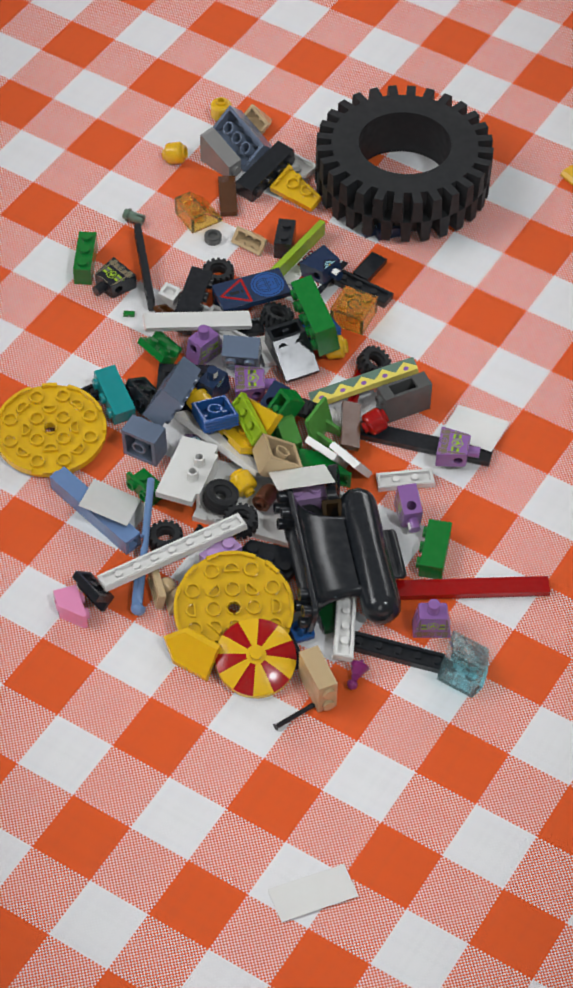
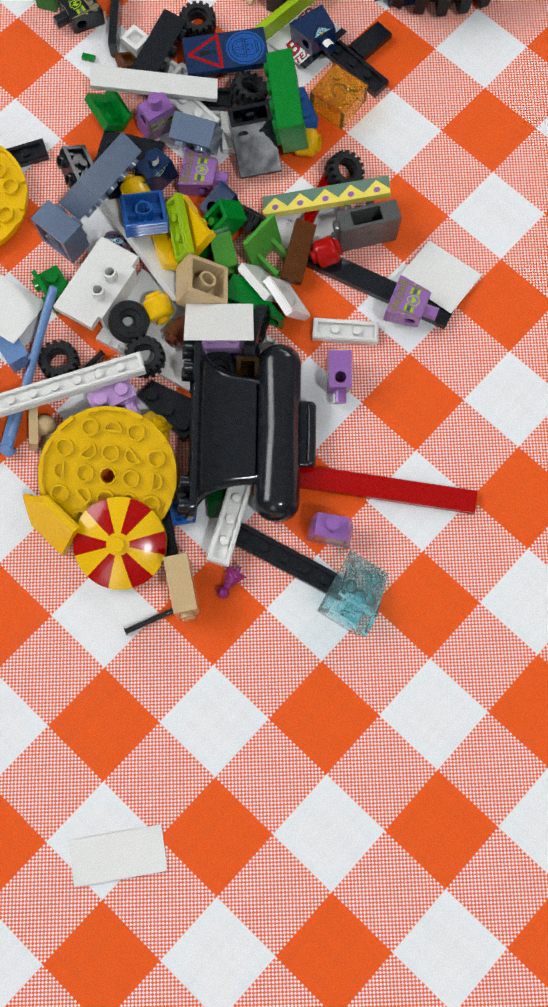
camera: 10 degrees right, 25 degrees up
(113, 394) = (42, 163): teal brick -> none
(434, 549) = (355, 432): green brick -> none

